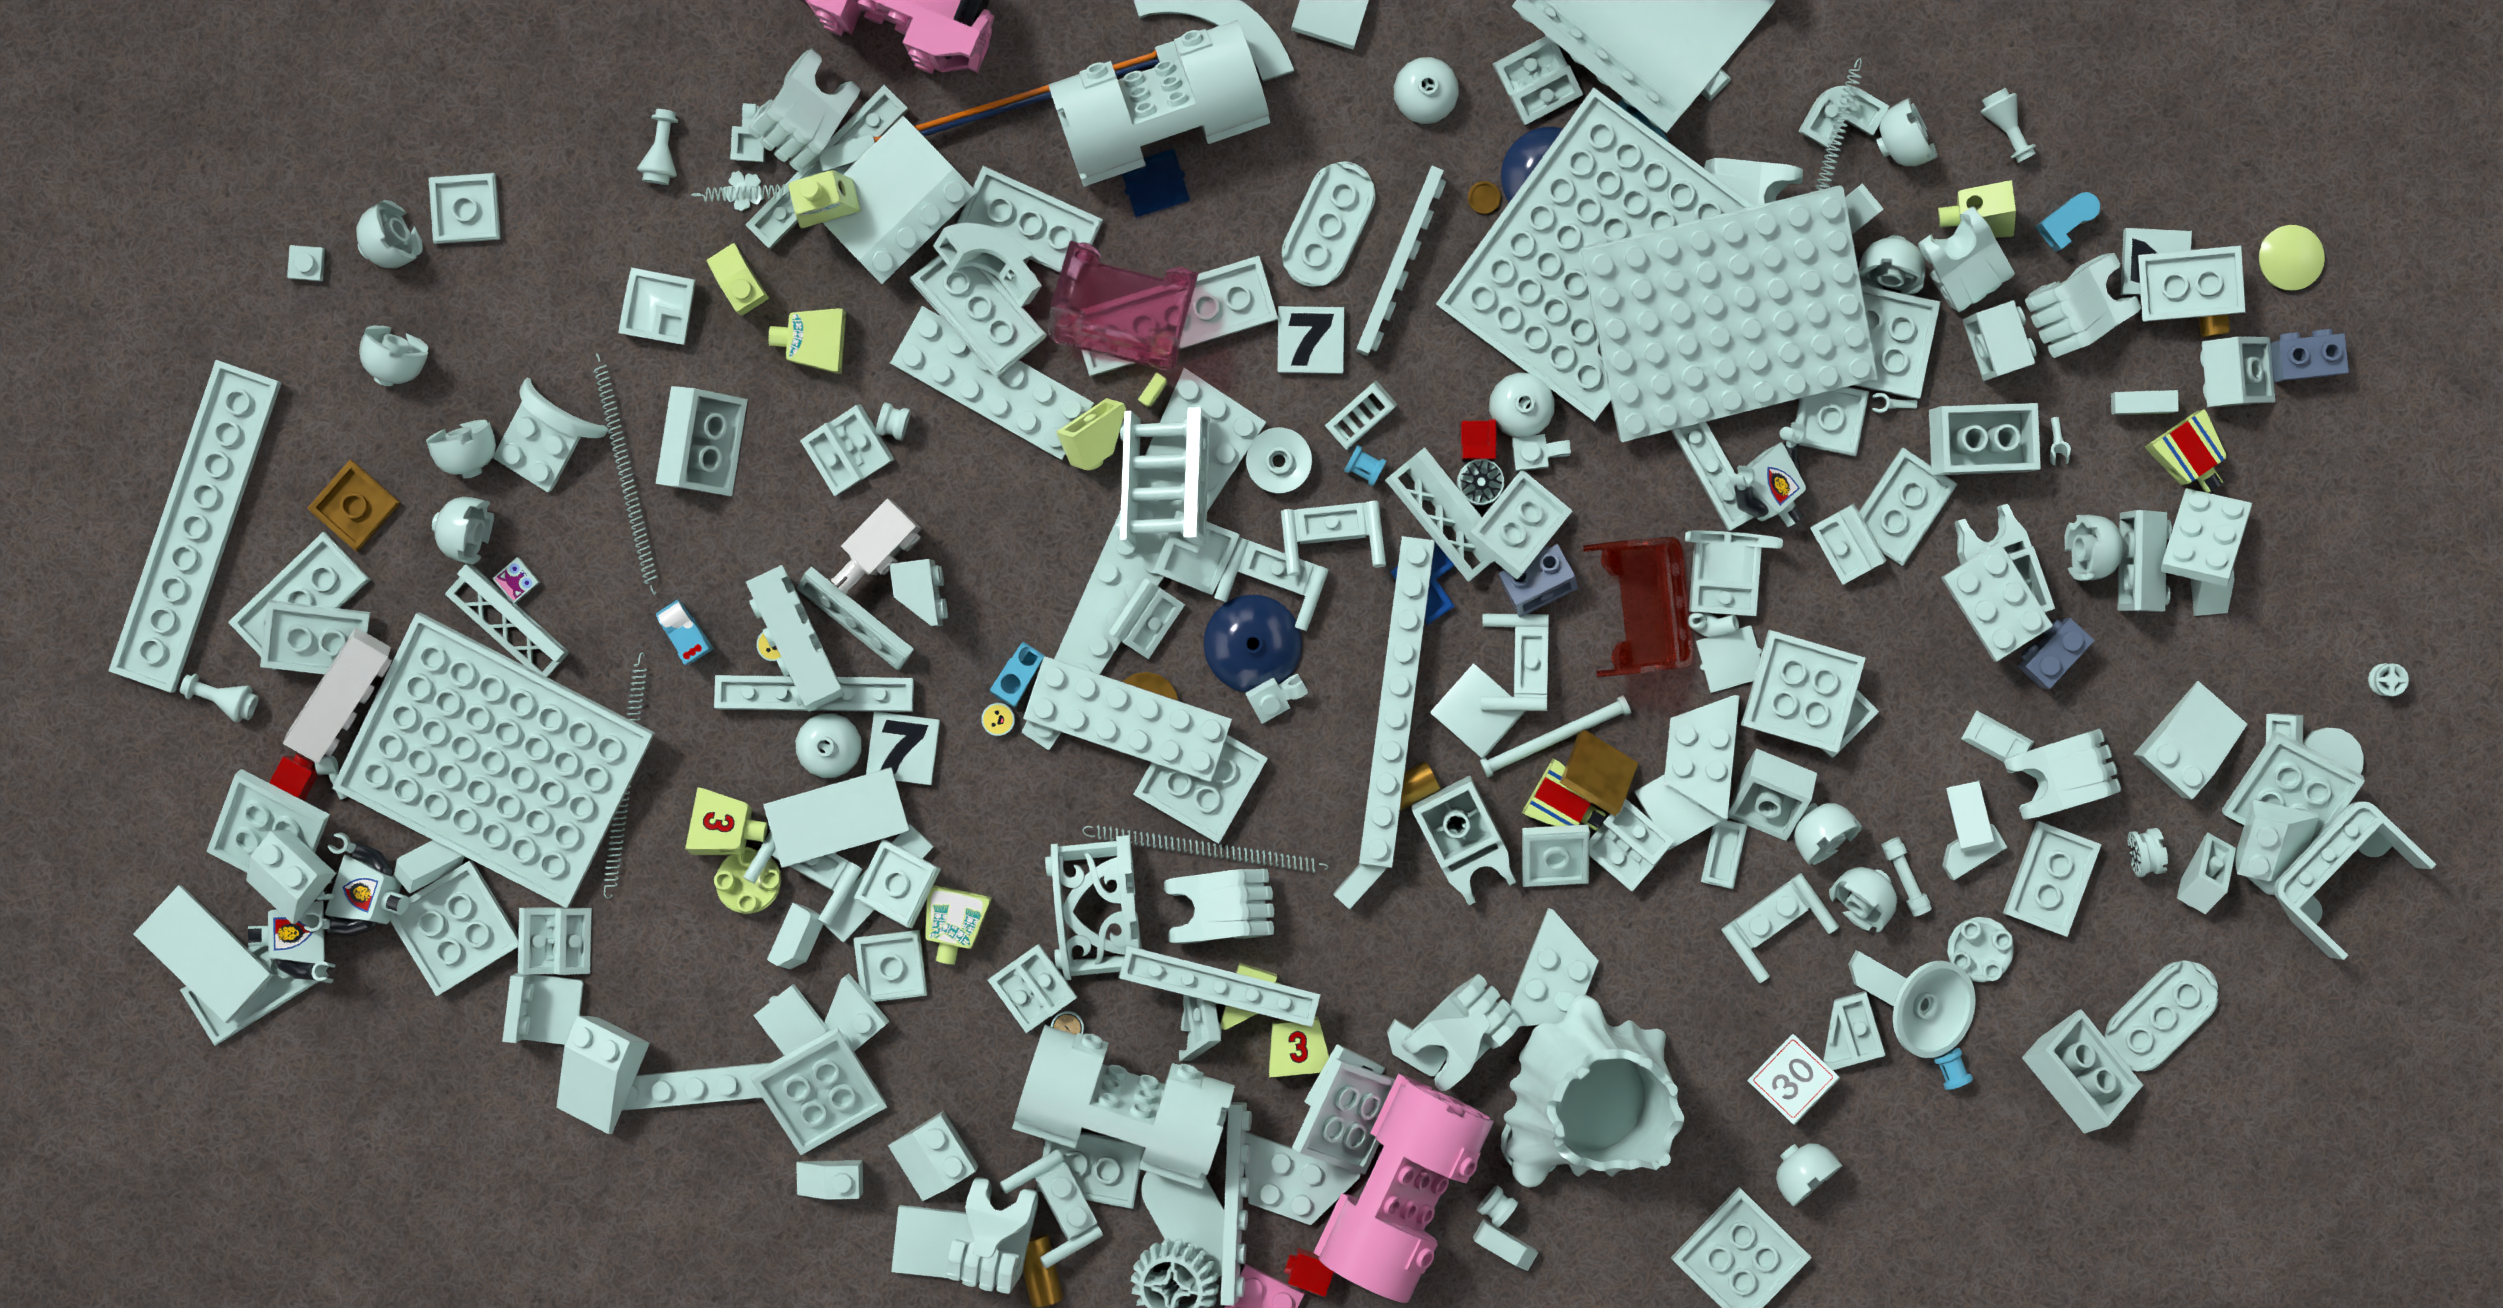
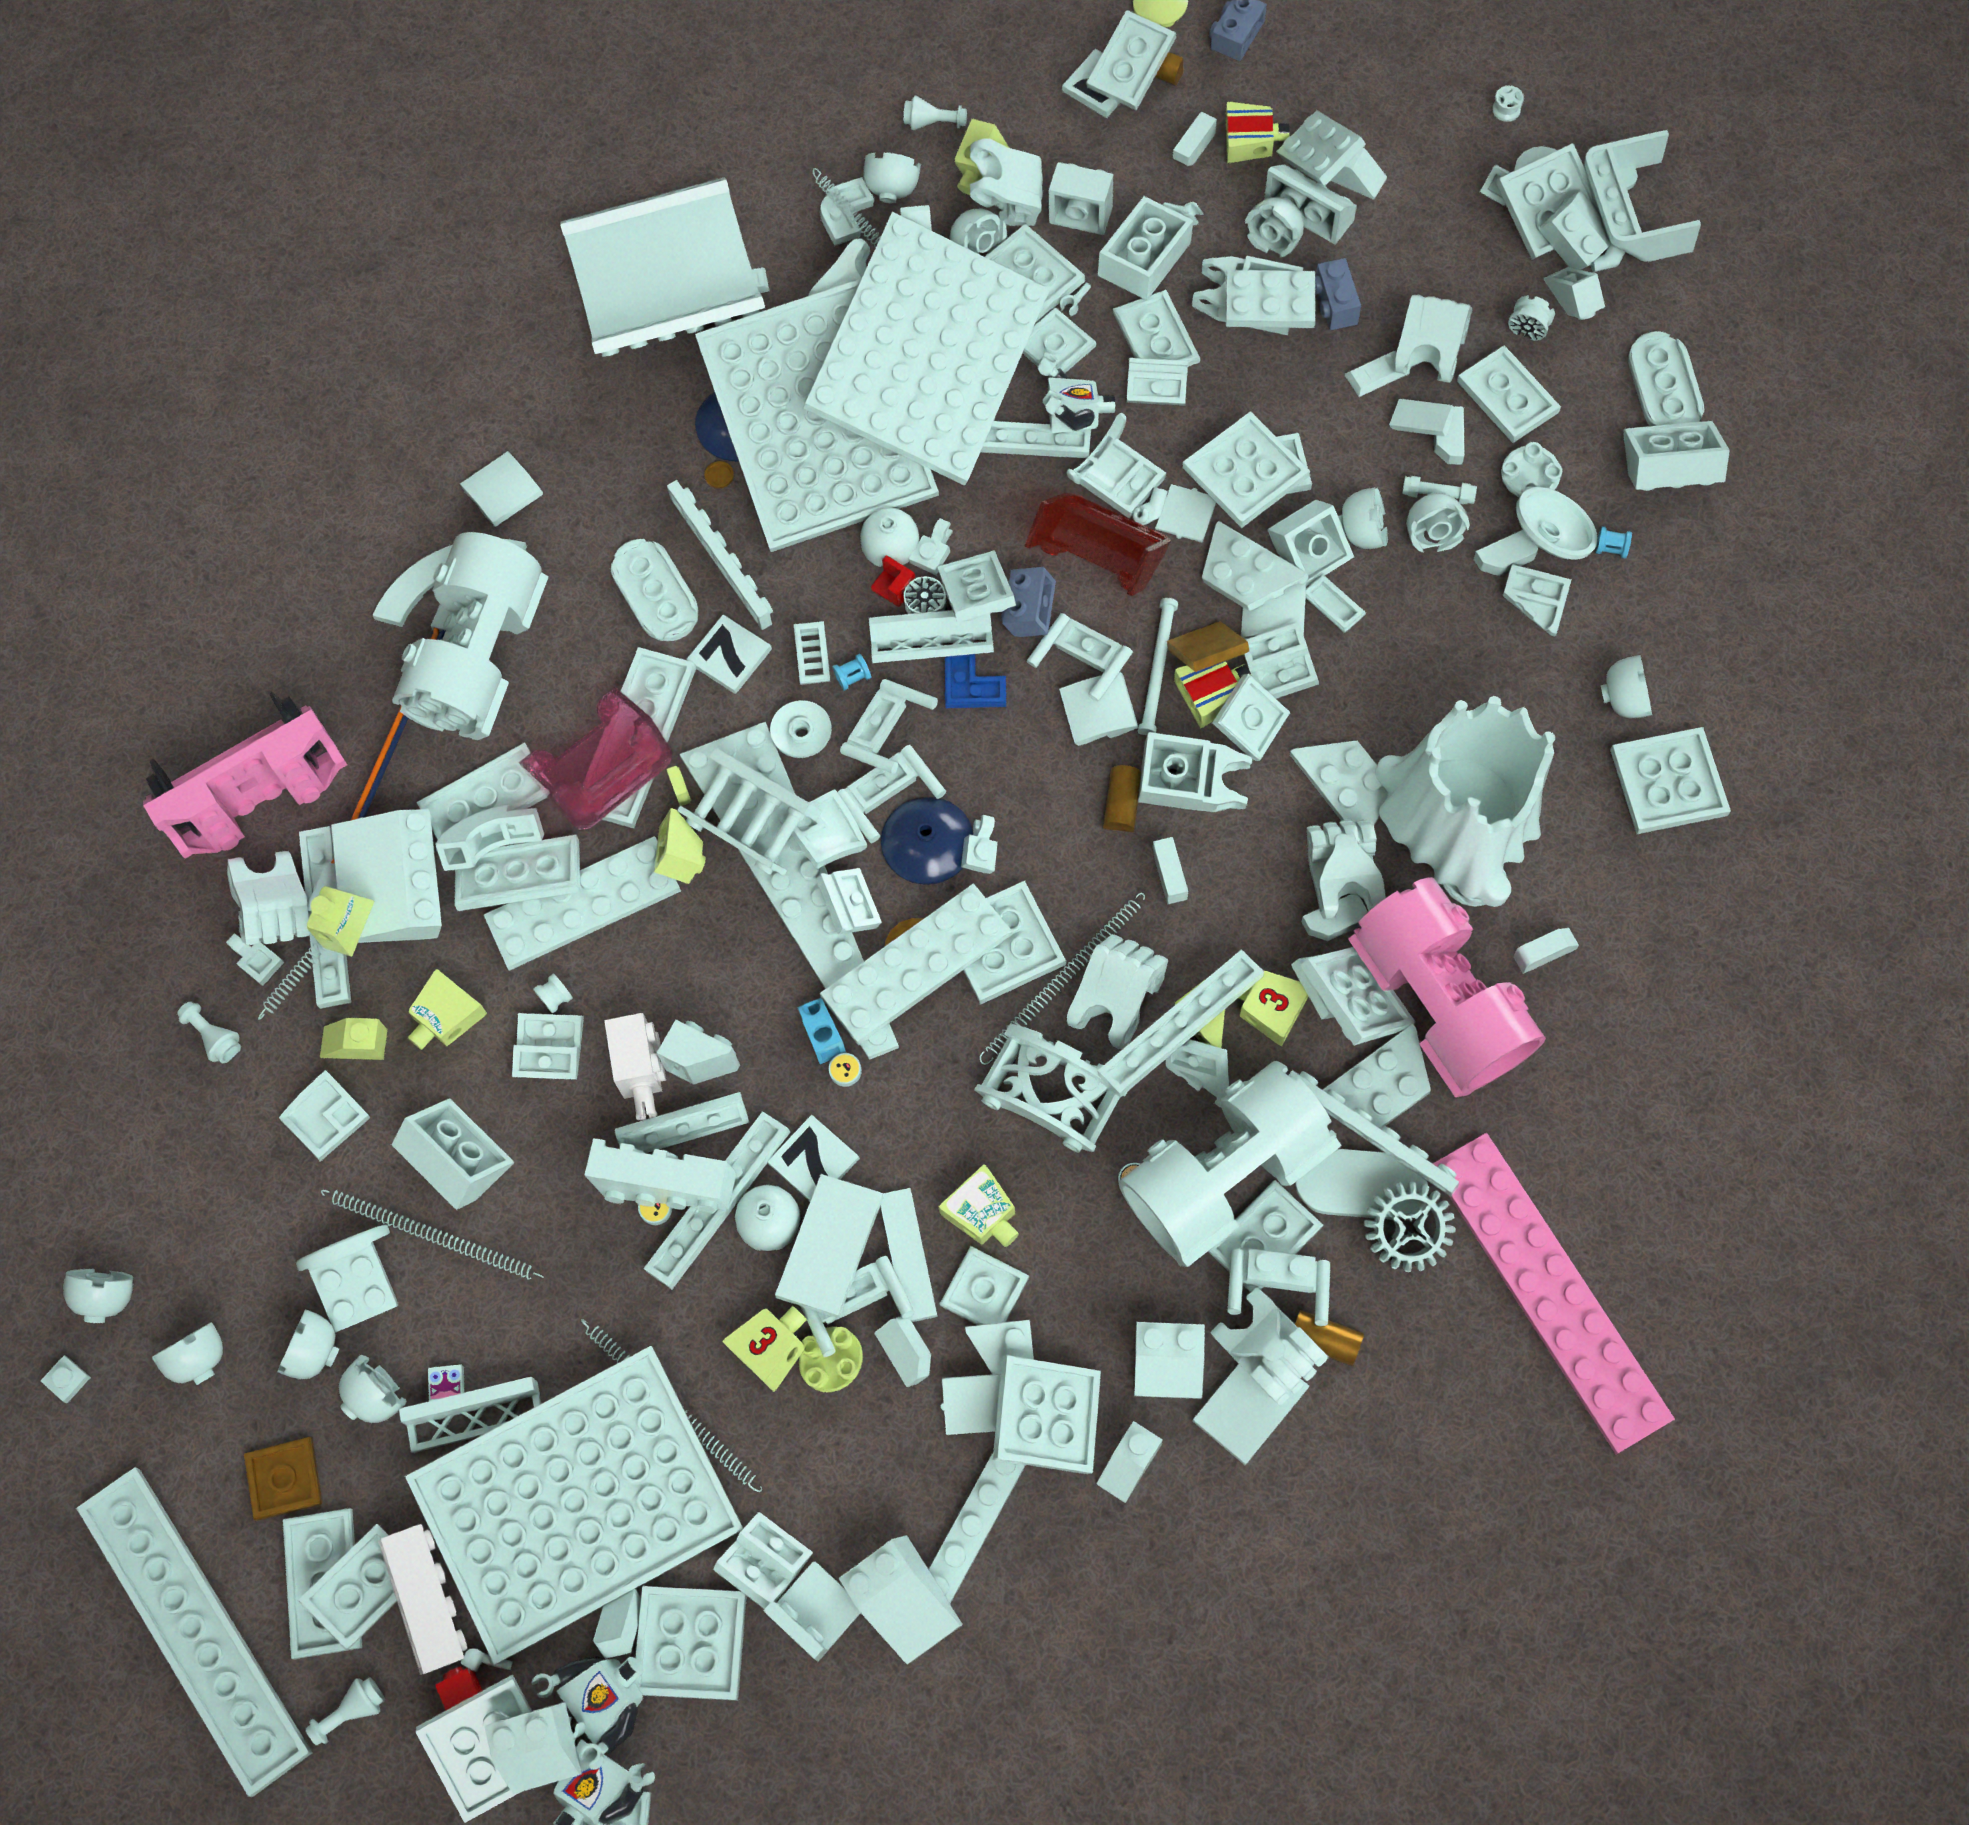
camera: 50 degrees left, 20 degrees down
(464, 208) = (129, 1219): light aqua tile -> none
(683, 632) = (591, 1271): medium azure leg -> none
(737, 180) = (294, 997): light aqua plant -> none
(897, 883) = (918, 1231): light aqua tile -> none
(1032, 988) = (1082, 1182): light aqua slope -> none
(1156, 184) = (529, 691): clear blue piece -> none
(1308, 1272) = (1470, 1113): red brick -> none
(1396, 702) = (1051, 758): light aqua plate -> none
(1416, 101) = (611, 463): light aqua cylinder -> none
(1497, 1206) = (1508, 934): light aqua wheel -> none
(1537, 79) = (663, 388): light aqua slope -> none
(1773, 915) = (1406, 600): light aqua plate -> none
(1793, 1079) = (1547, 655): light aqua piece -> none
(2074, 212) = (1027, 108): medium azure leg -> none
(2079, 307) = (1094, 138): light aqua piece -> none
(2191, 741) = (1468, 250): light aqua slope -> none
(2237, 371) = (1214, 74): light aqua slope -> none

